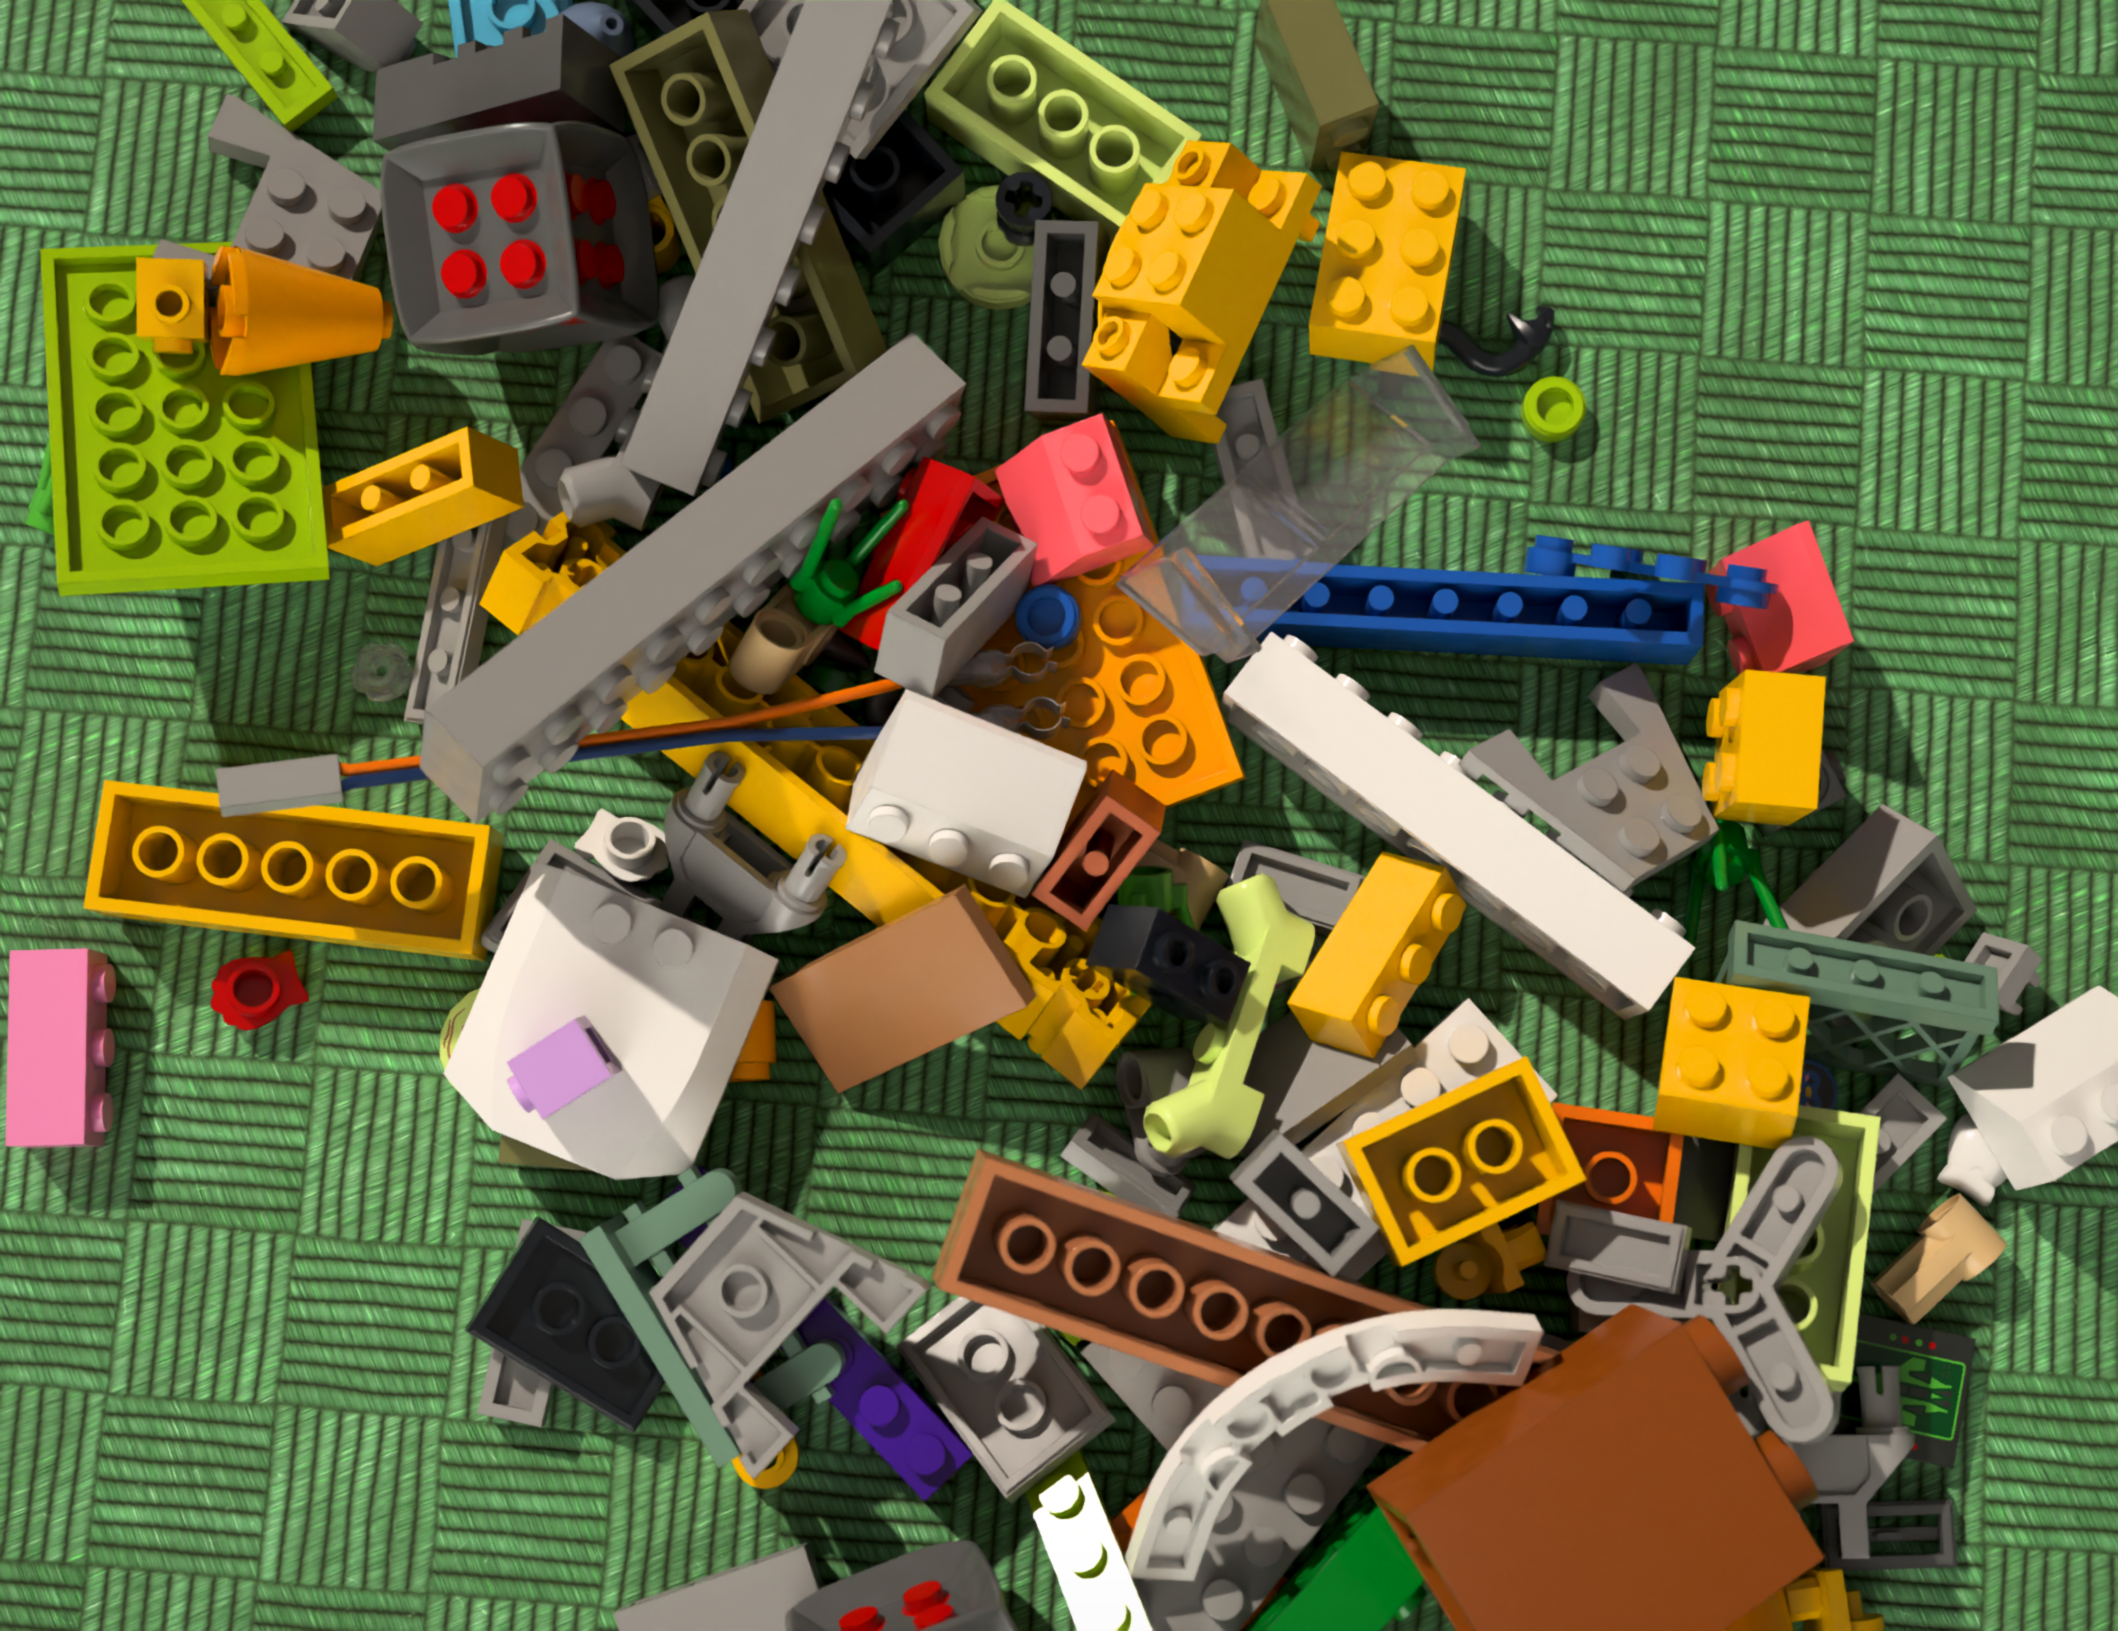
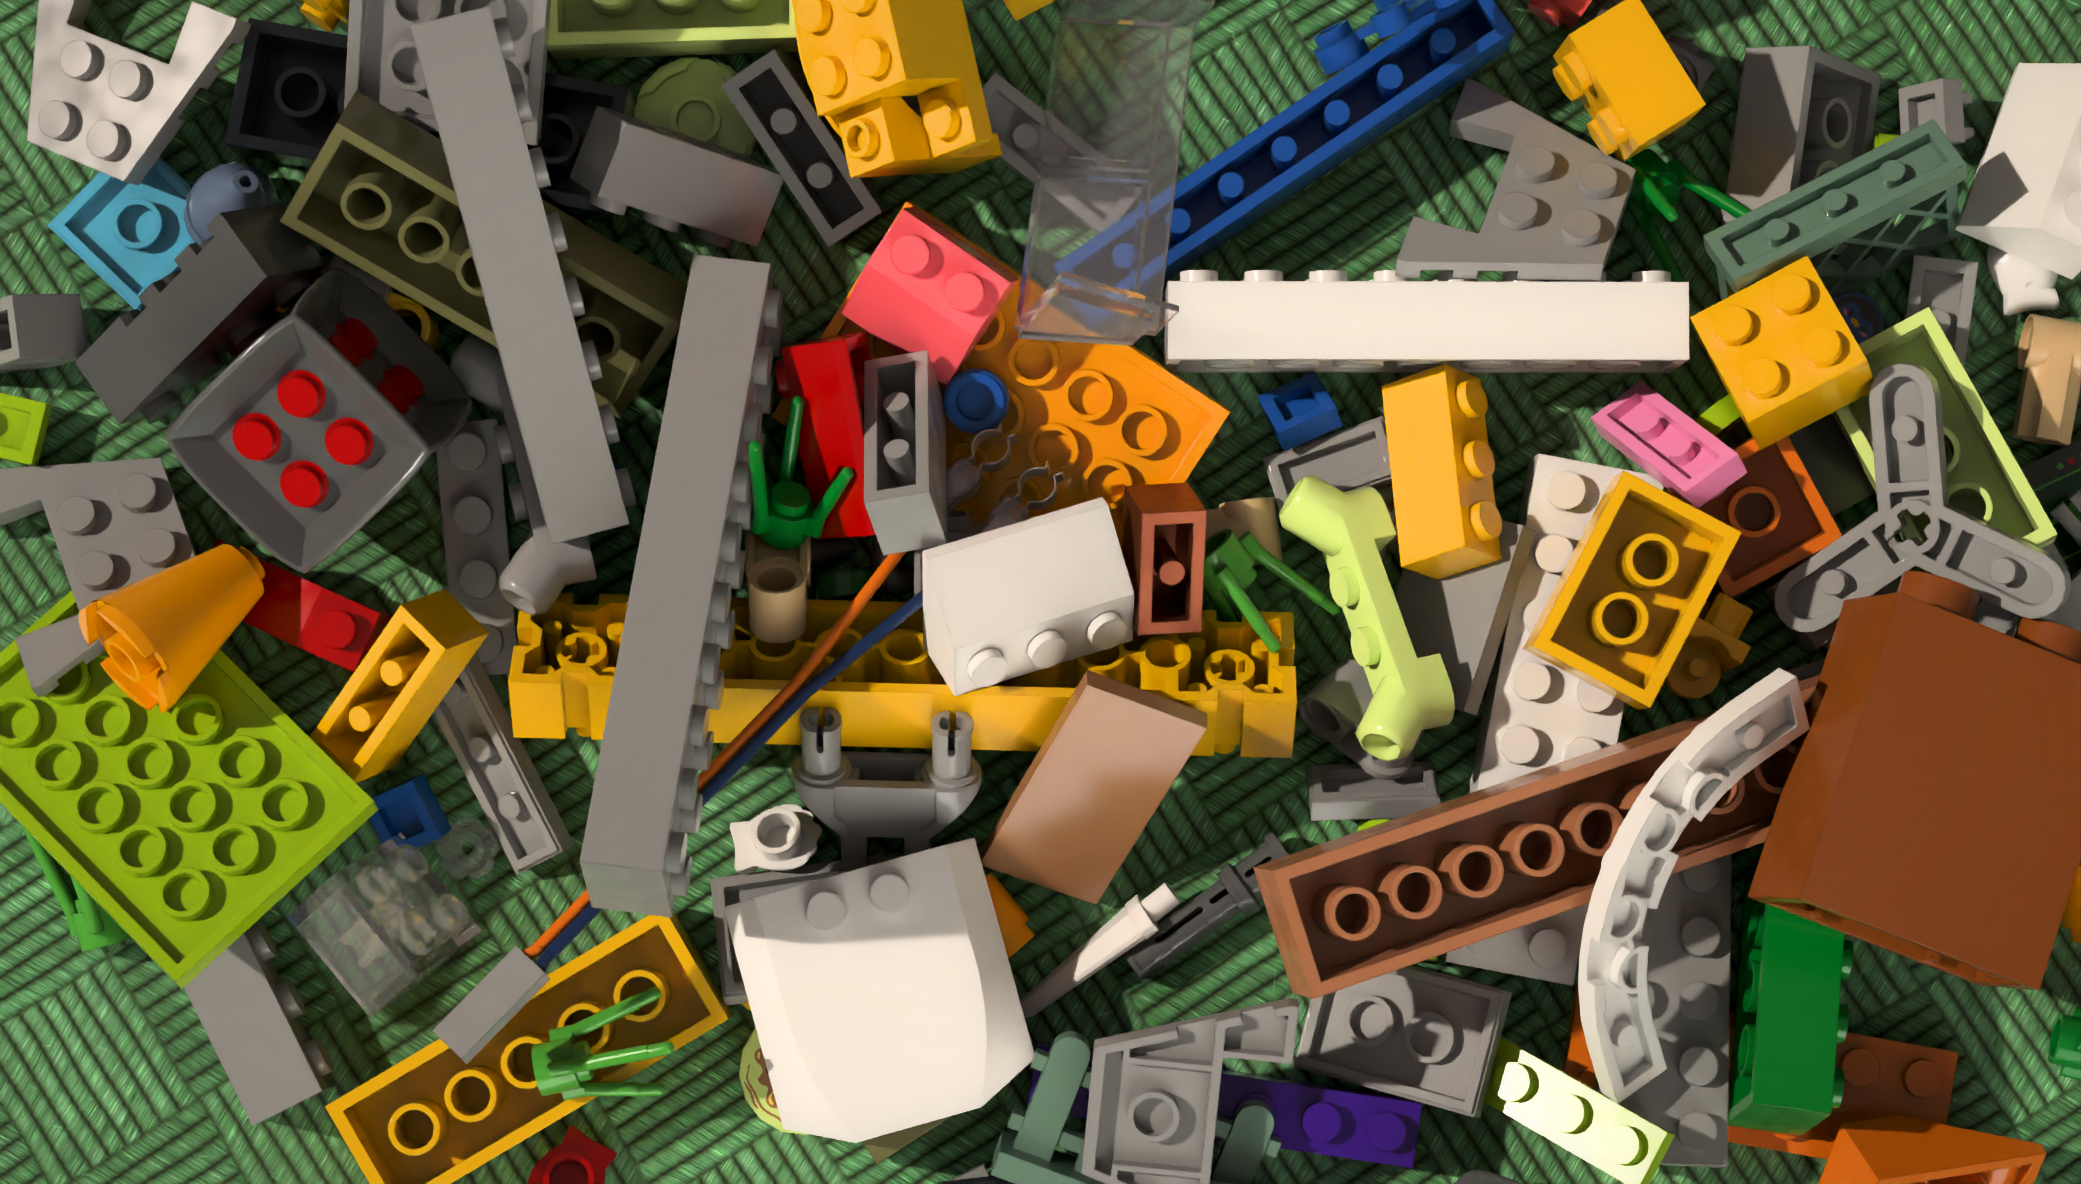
camera: 40 degrees left, 5 degrees up
(110, 680) = (258, 1028): none -> light grey brick
(172, 303) = (76, 685): yellow brick -> none
(265, 674) = (384, 924): none -> clear brick
(314, 890) = (566, 1064): none -> bright green plant
(354, 609) = (409, 809): none -> blue plate
(401, 393) = (315, 617): none -> red slope
(560, 1068) = (878, 1054): lavender brick -> none
(835, 1131) = (1117, 936): none -> white bar
(909, 1166) = (1187, 926): none -> dark grey pin
(944, 268) = (675, 179): none -> light grey brick
(1009, 199) = (677, 76): black bush -> none
(1168, 963) = (1288, 608): black brick -> none
(1301, 824) = (1300, 411): none -> blue plate
(1304, 1202) = (1535, 715): light grey brick -> none
(1580, 1072) = (1669, 445): none -> bright pink plate
(1618, 1247) = (1801, 563): light grey tile -> none
(1633, 1086) = (1720, 417): none -> lime tile

